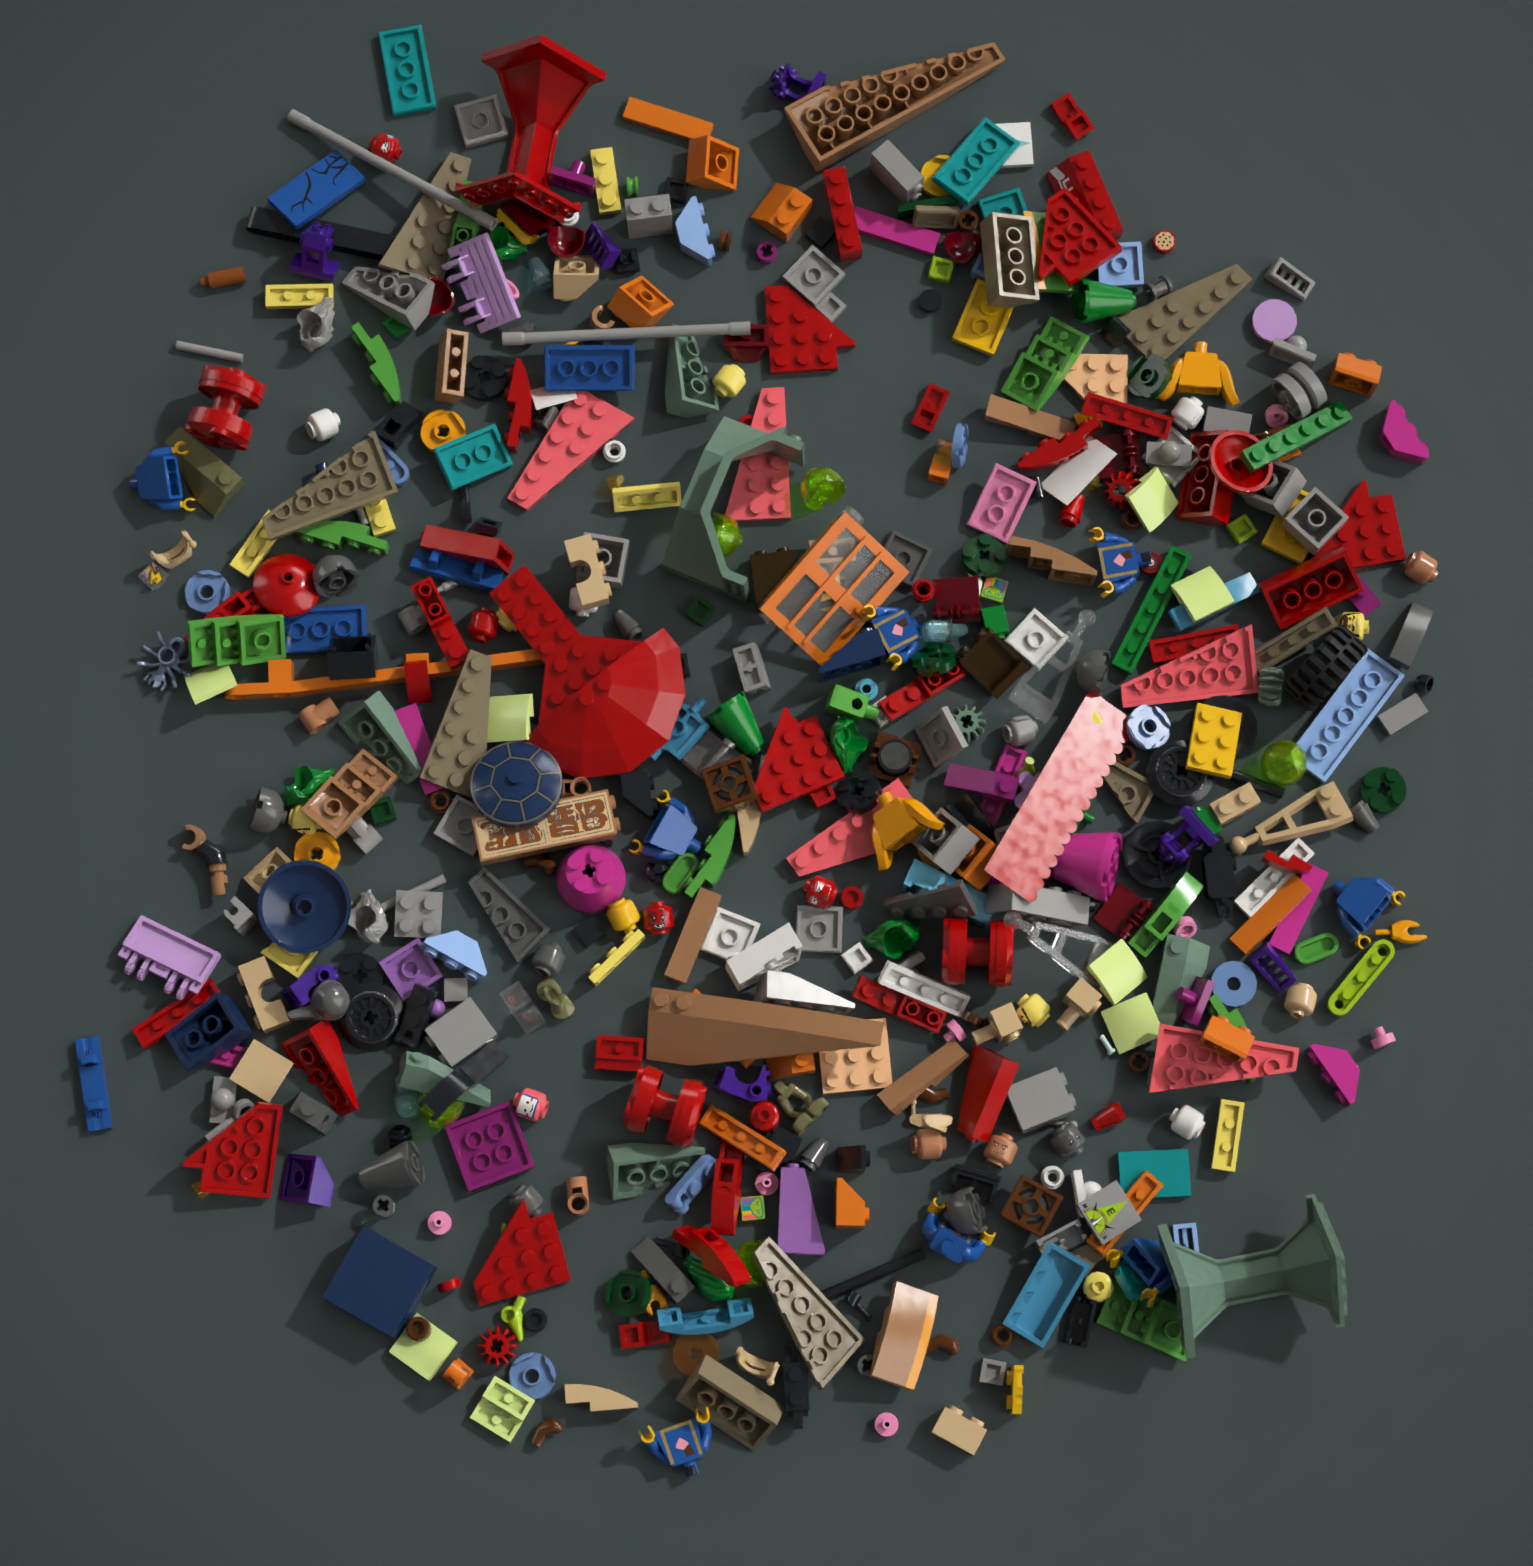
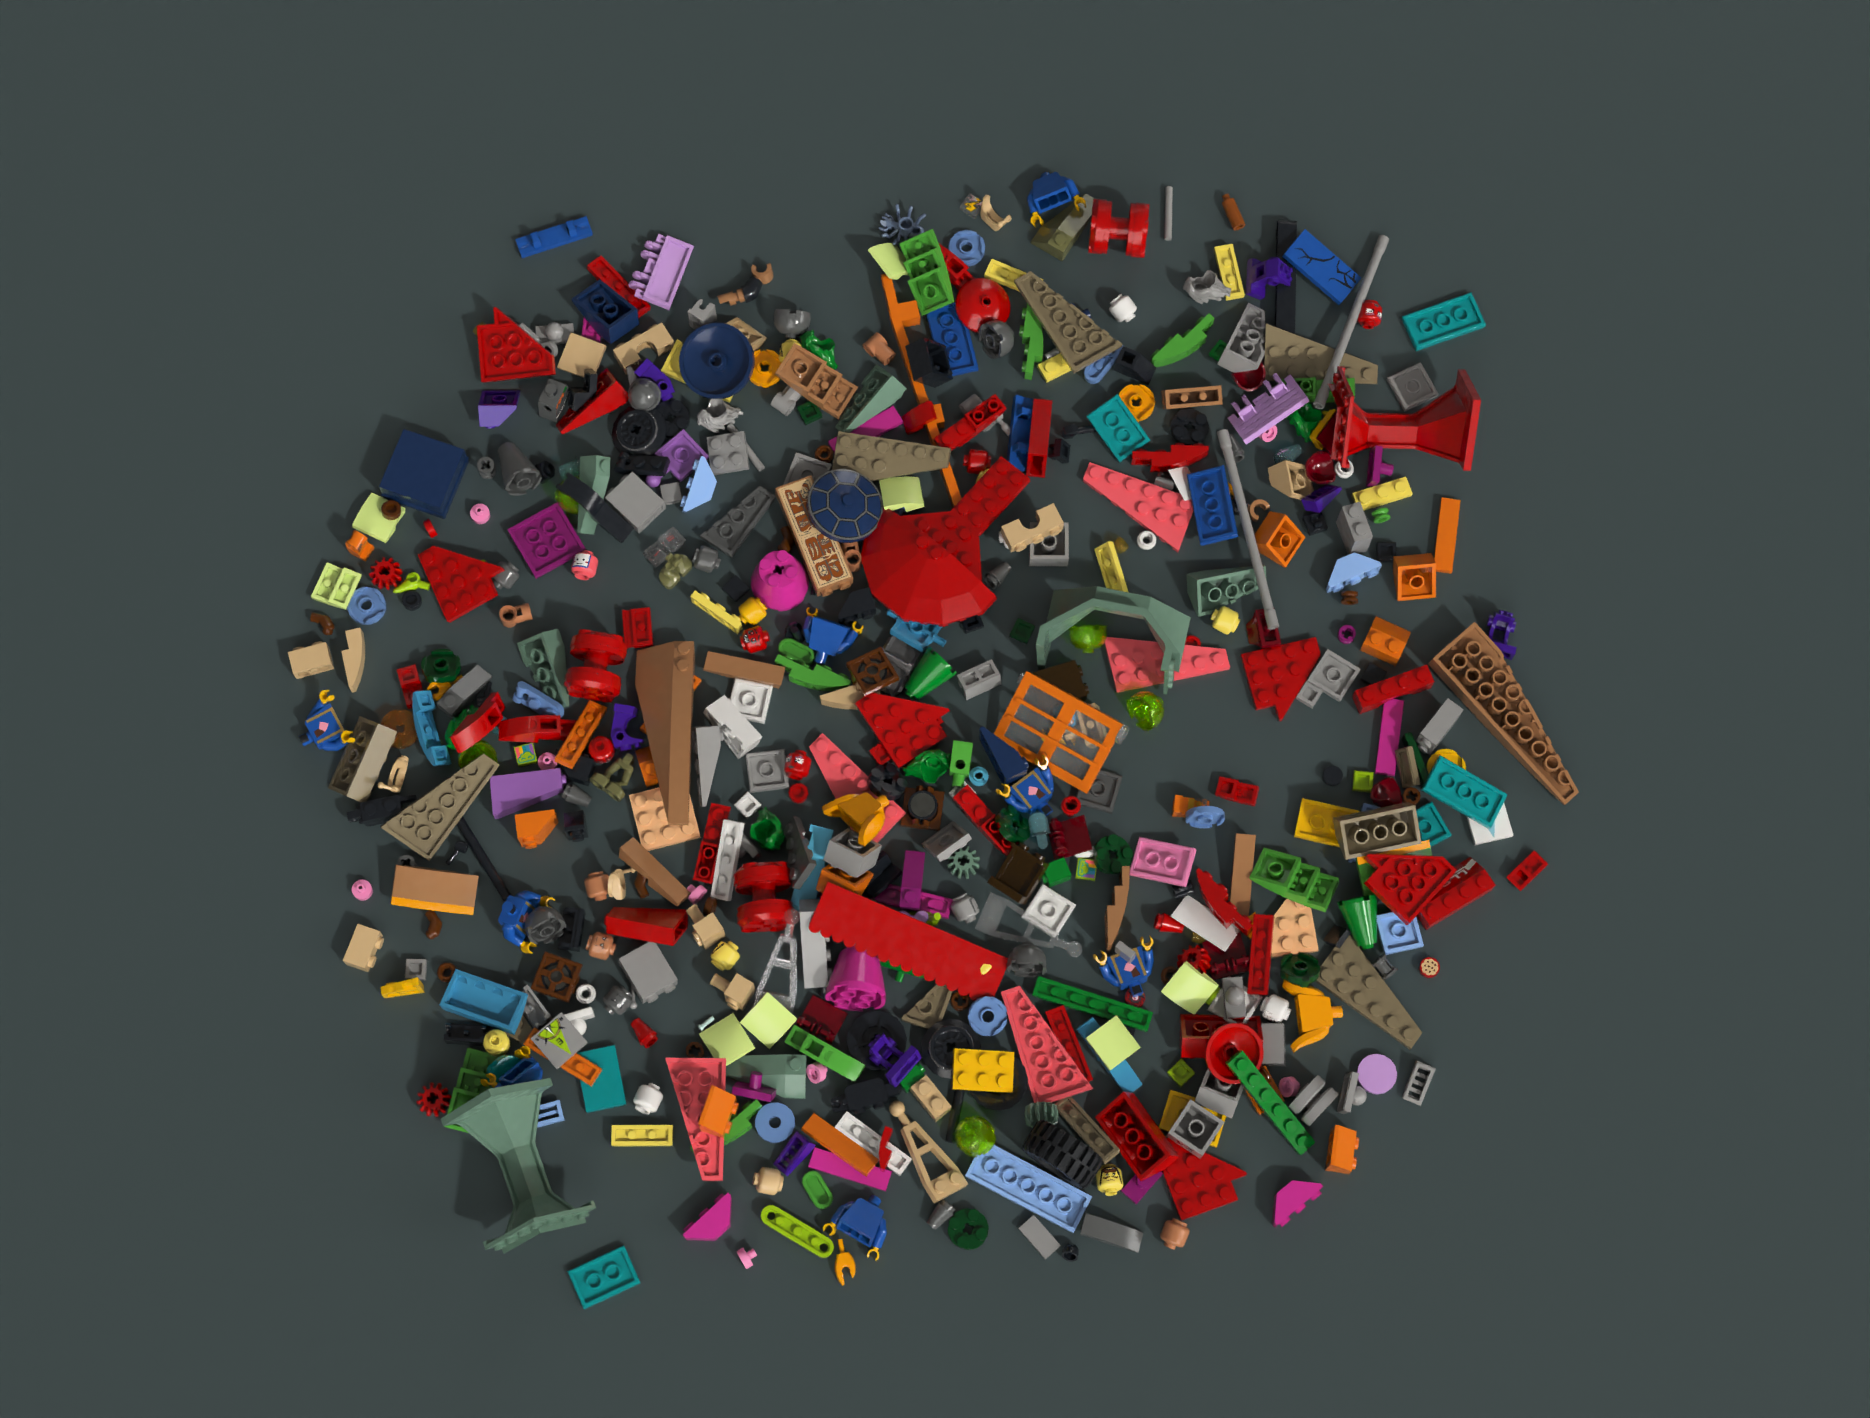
camera: 80 degrees right, 5 degrees down
(312, 1076) = (580, 395): none -> black slope
(592, 1451) = (310, 659): none -> tan brick
(1104, 560) = (1125, 952): none -> light grey tile
(1147, 1375) = (439, 1103): none -> red gear
(1381, 1202) = (604, 1277): none -> teal tile

